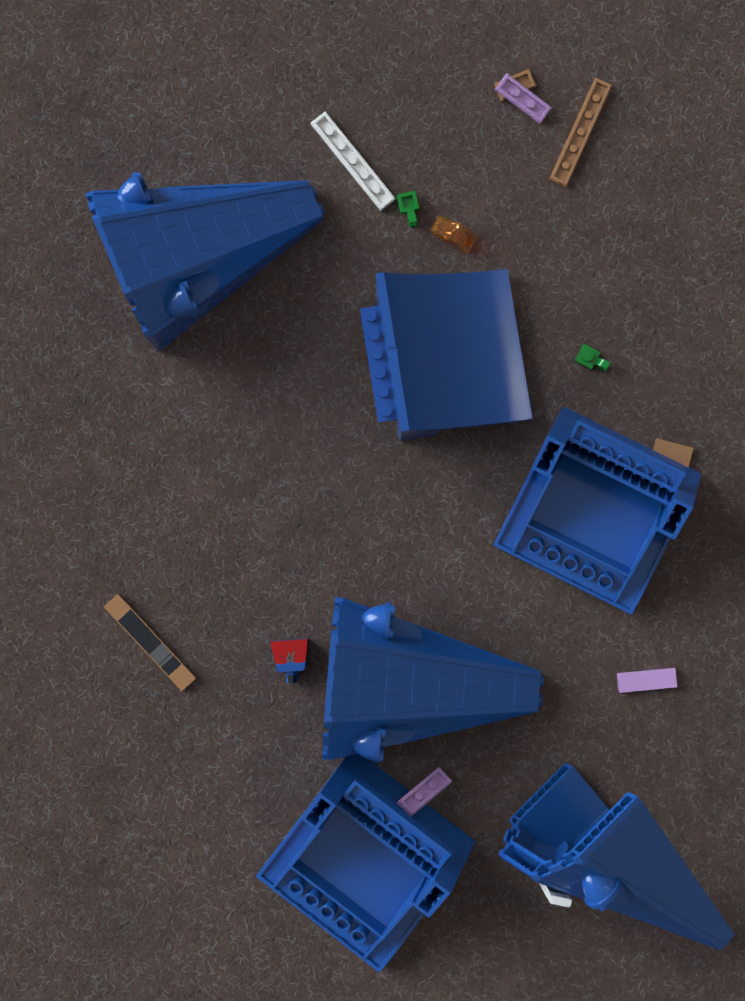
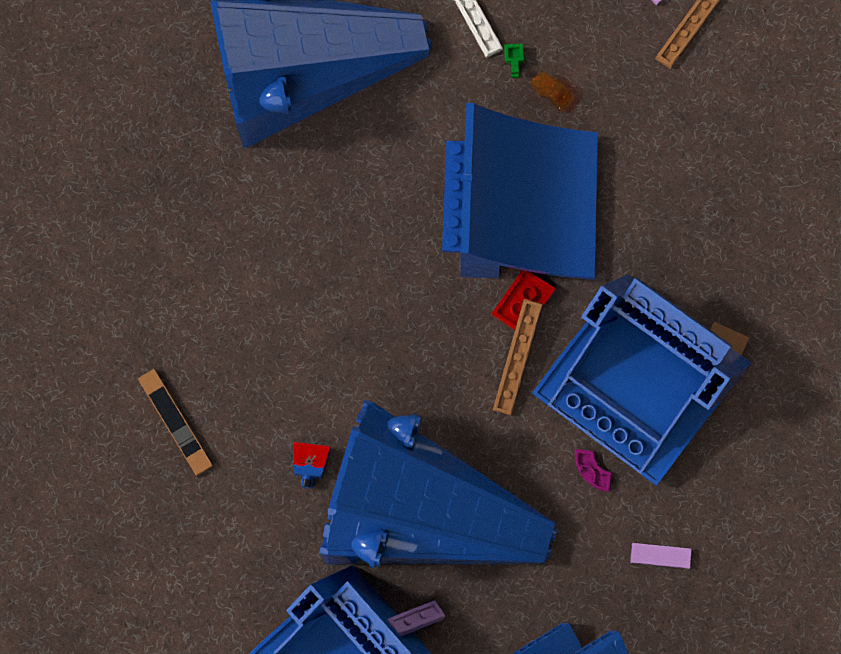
camera: 15 degrees right, 10 degrees down
(466, 456) = (526, 287): none -> red plate
(472, 512) = (517, 357): none -> medium nougat tile
(565, 610) = (591, 471): none -> magenta tile
(589, 357) = (663, 232): green plate -> none

